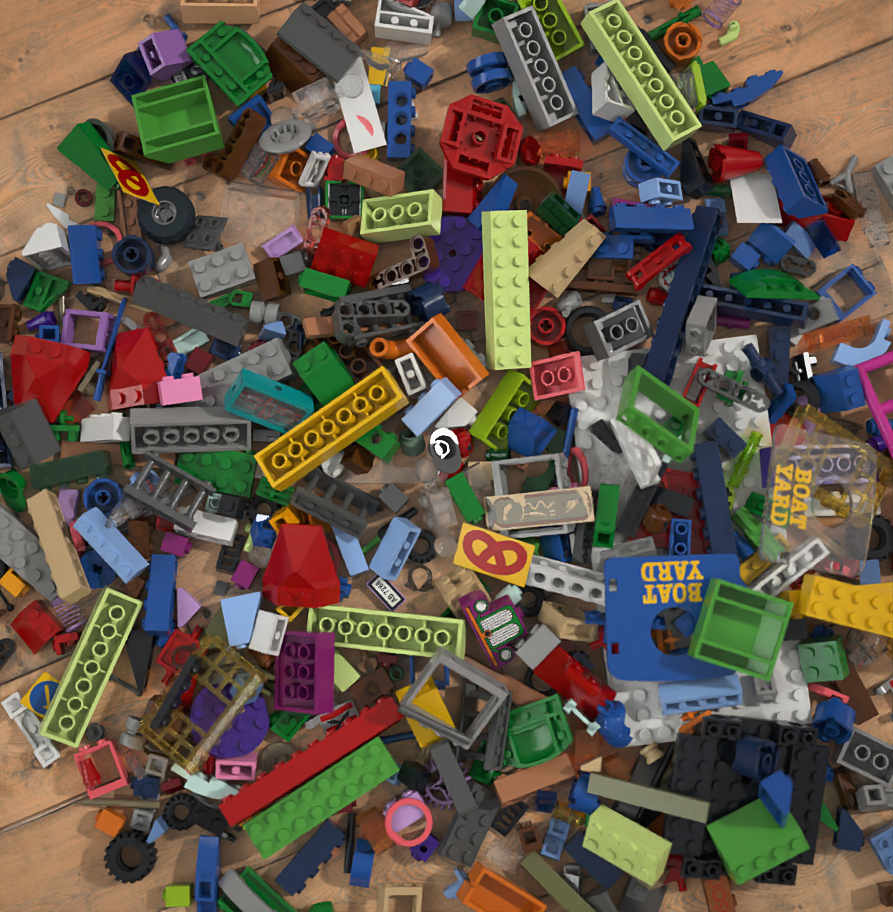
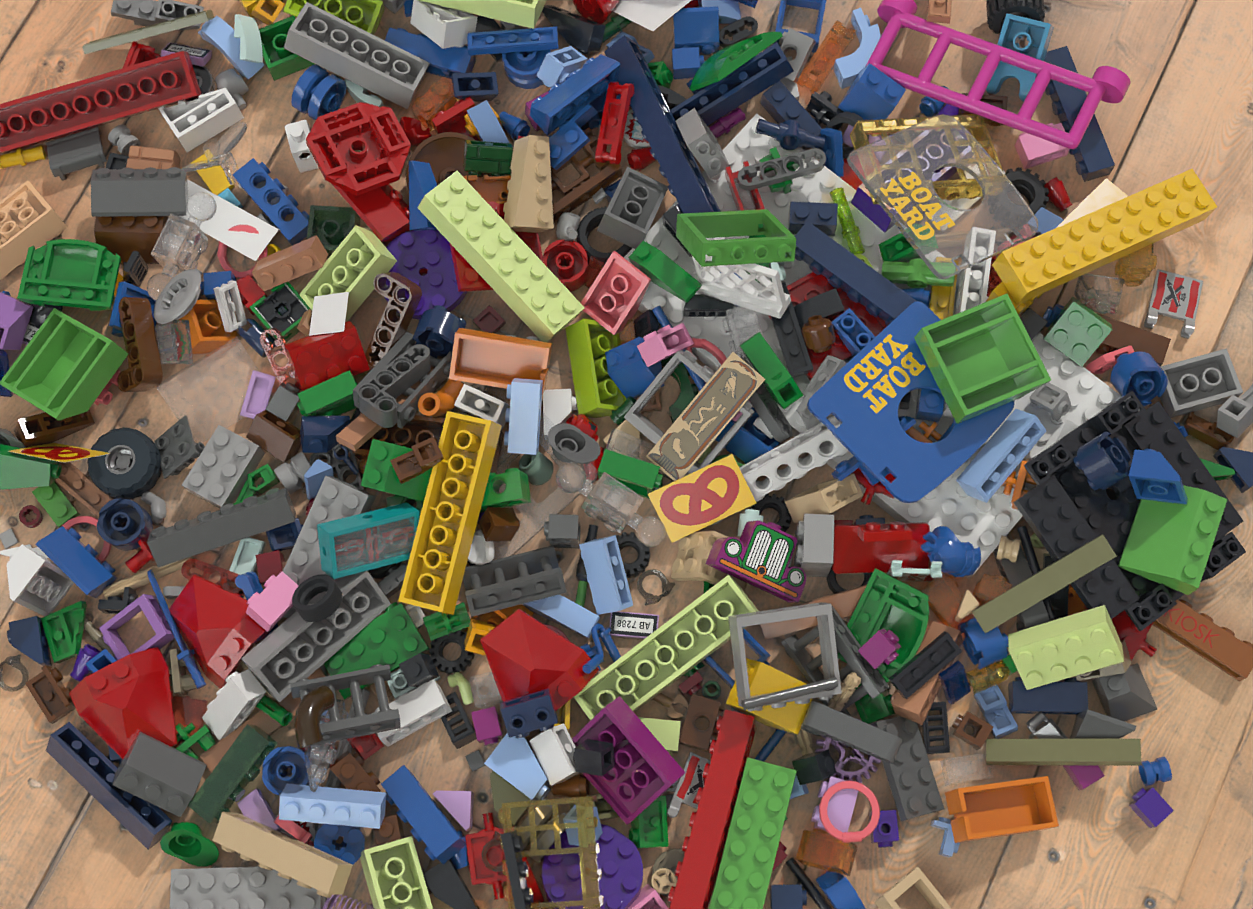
camera: 35 degrees left, 10 degrees down
(139, 482) = (309, 715): none -> dark brown cylinder
(176, 544) = (396, 755): magenta brick -> none
(205, 424) = (324, 607): none -> black tyre
(262, 532) = (469, 667): blue window -> none
(263, 761) = (661, 880): none -> tan wheel
(270, 595) = (529, 714): none -> dark blue brick
(286, 655) = (594, 757): none -> black brick
(300, 305) = (320, 432): none -> dark blue slope
(338, 380) = (419, 460): none -> reddish brown slope
(362, 580) = (609, 644): none -> blue piece
(368, 231) = (329, 313): none -> white sticker
(418, 73) = (254, 146): blue brick -> none
(450, 93) = (296, 136): none -> white torso
(474, 749) = (847, 690): none -> tan axle
(516, 744) = (881, 648): none -> magenta brick
(534, 777) = (925, 665): none -> black plate
(557, 439) = (664, 344): none -> bright pink brick
(593, 155) = (475, 85): none -> dark blue slope
(598, 391) = (664, 271): none -> green slope

